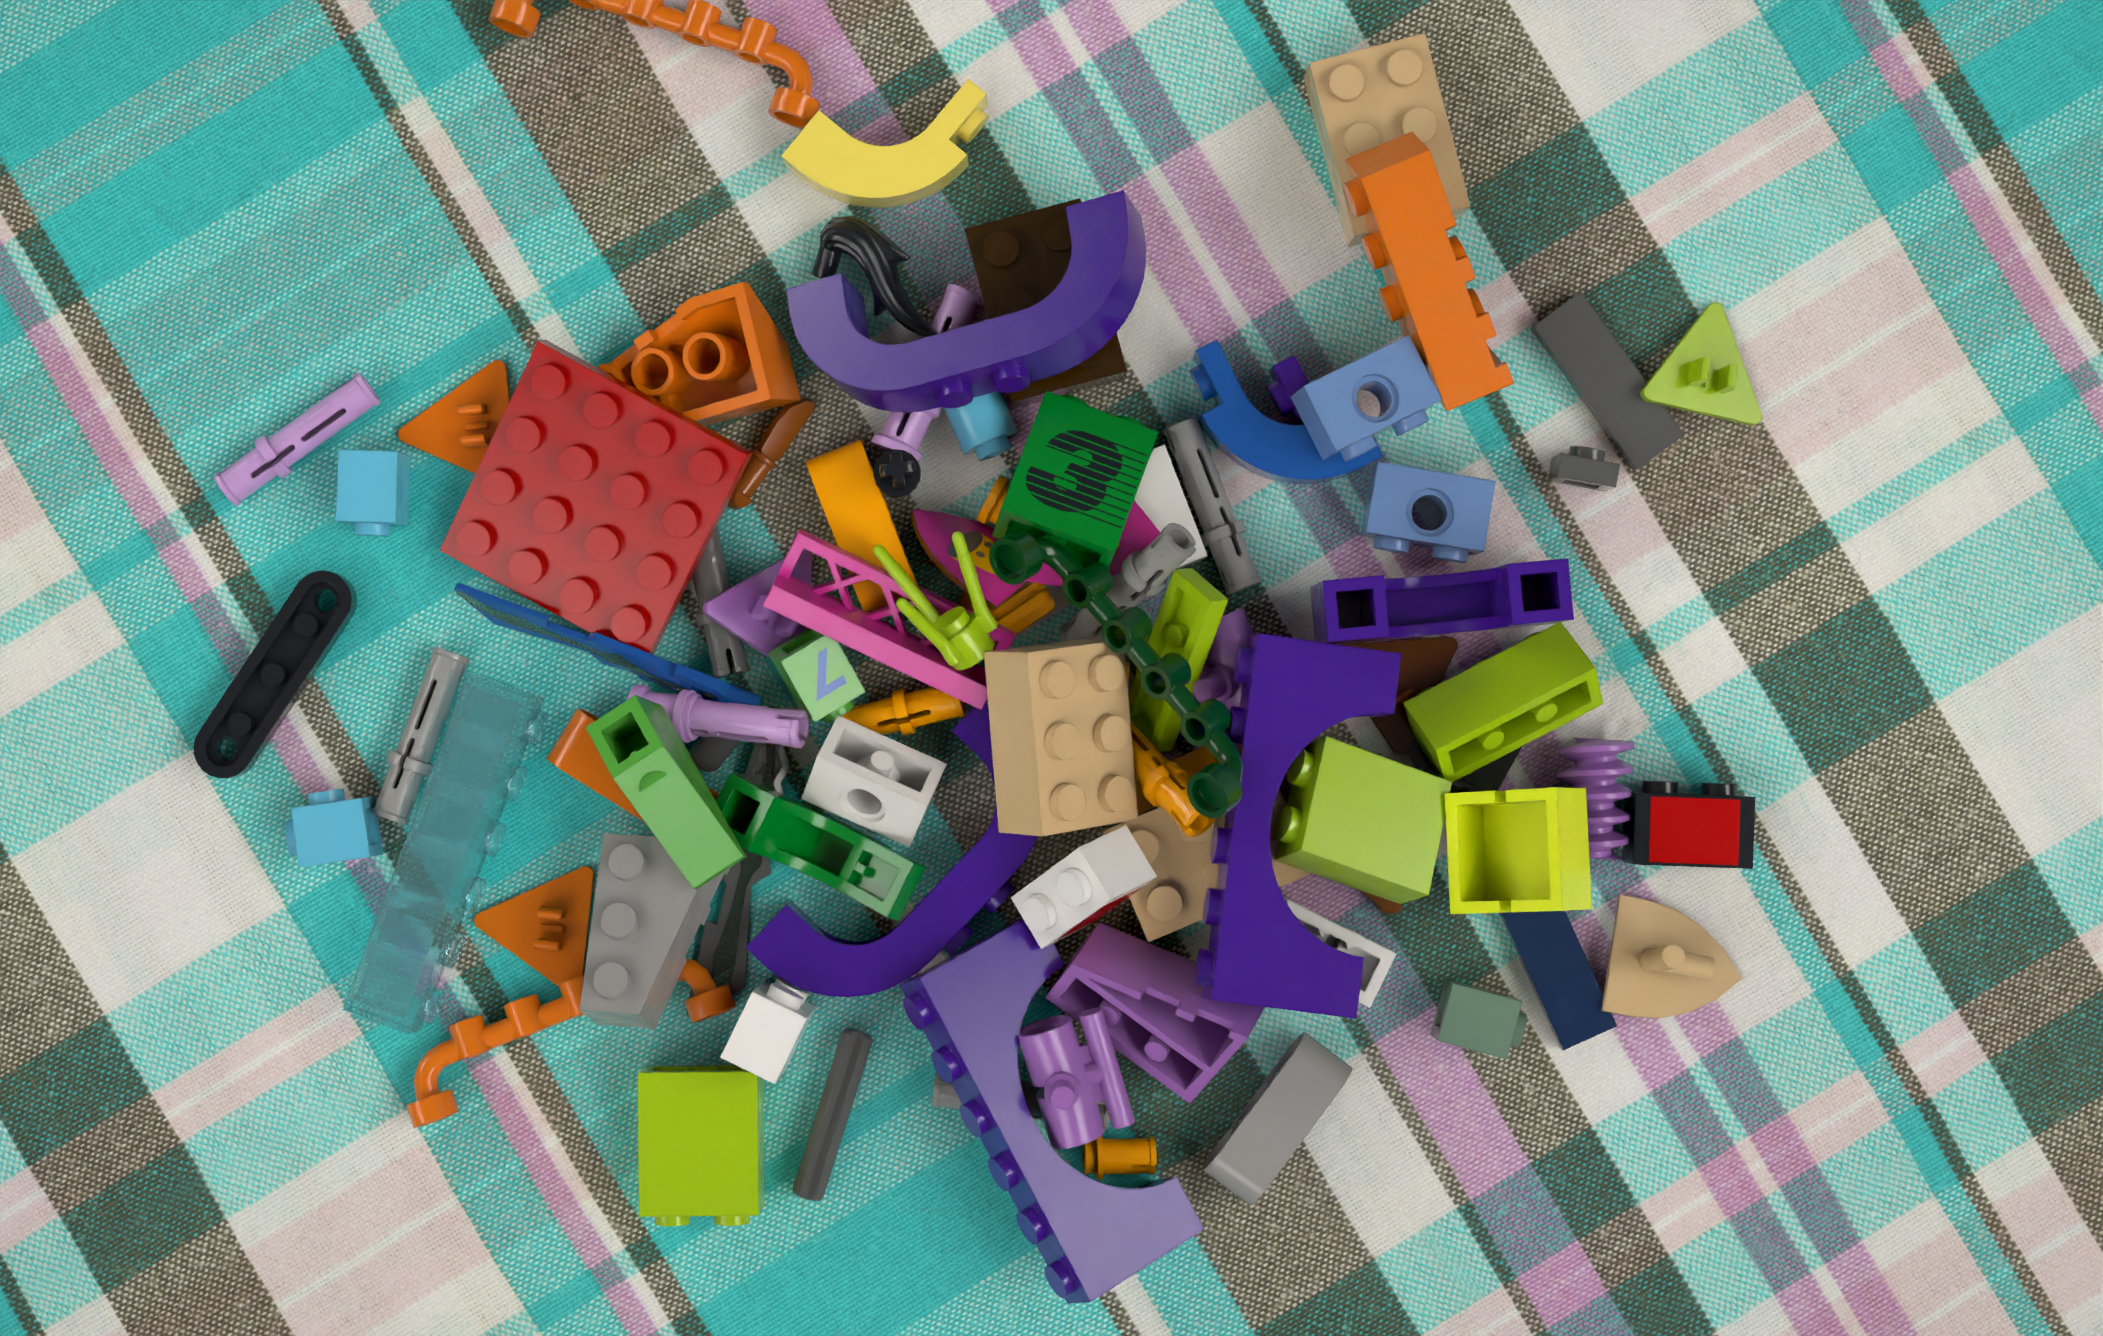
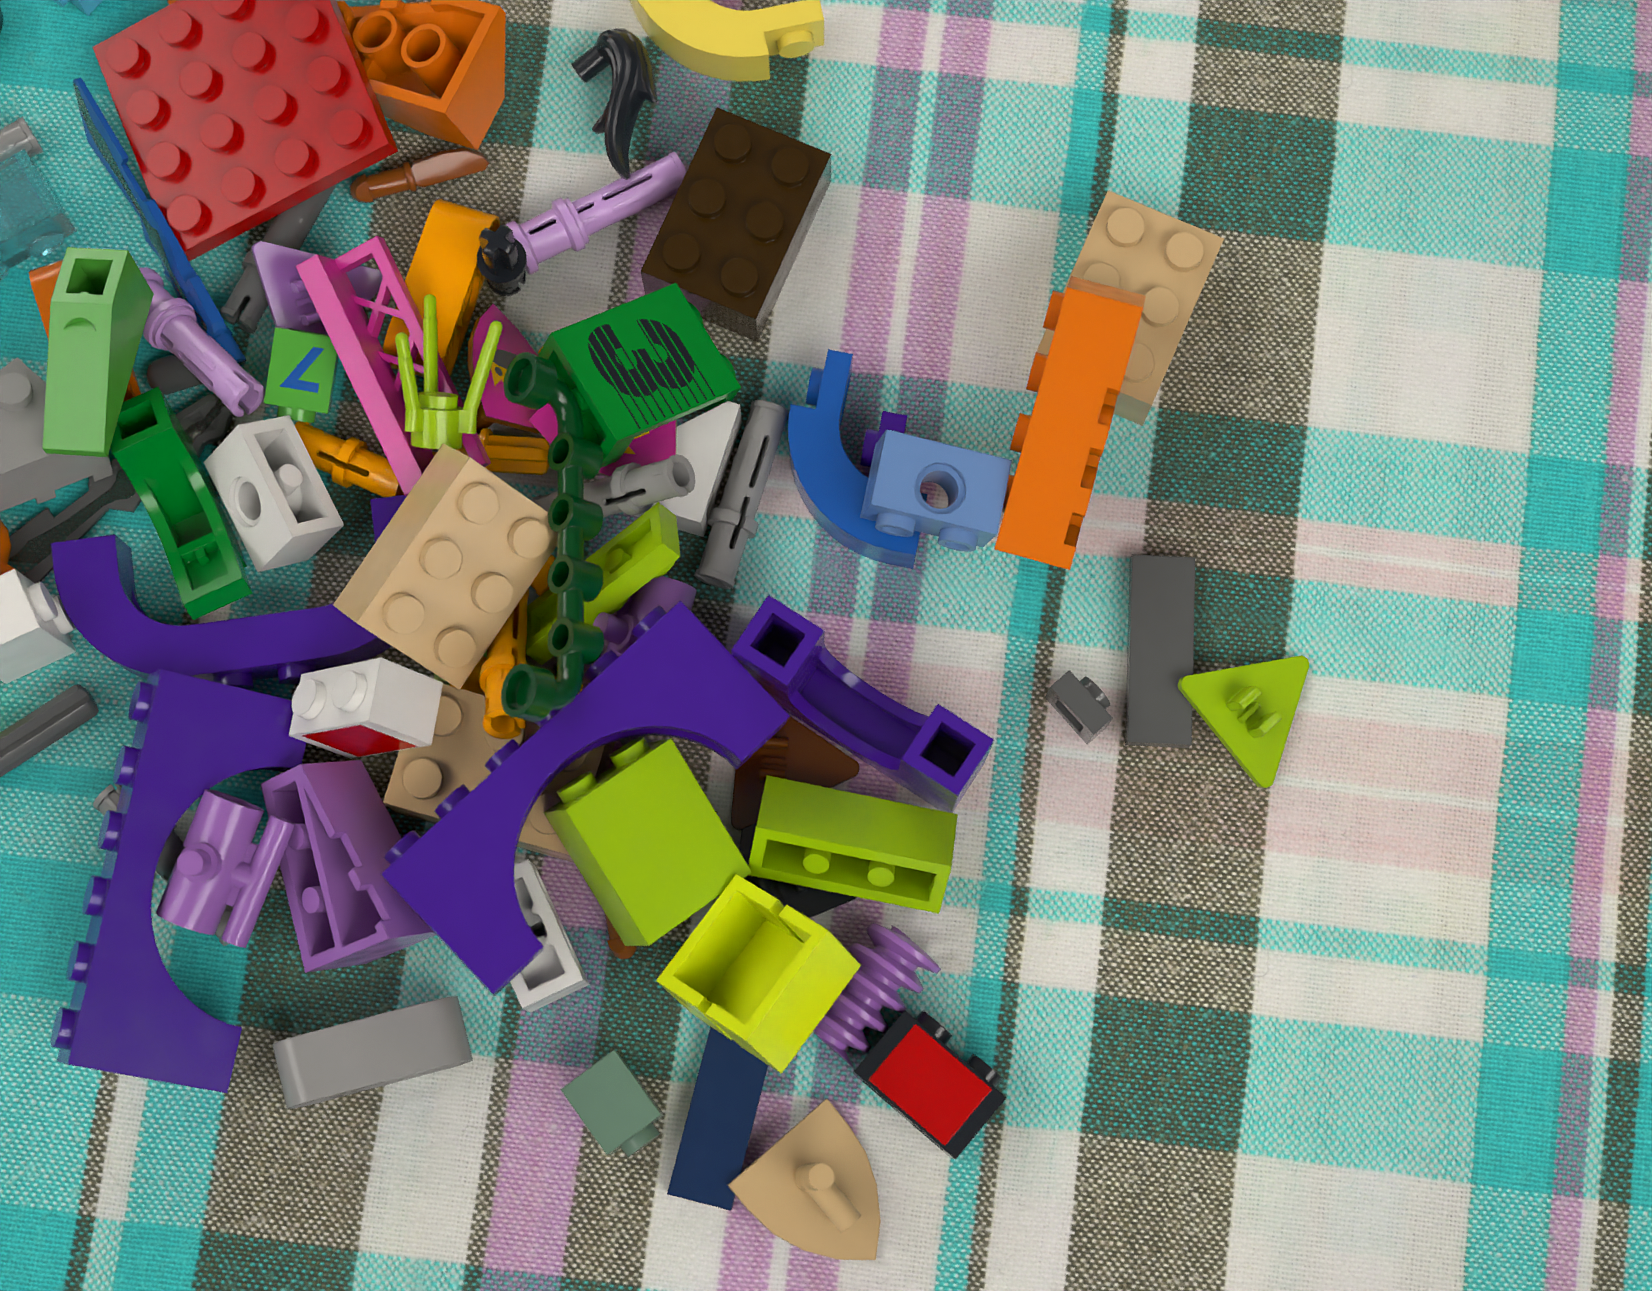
camera: 40 degrees right, 10 degrees down
(983, 426) = (610, 268): medium azure brick -> none
(991, 354) = (662, 214): dark purple arch -> none
(1119, 1156) = (213, 976): light orange pin -> none
(1463, 505) = (908, 599): medium blue brick -> none

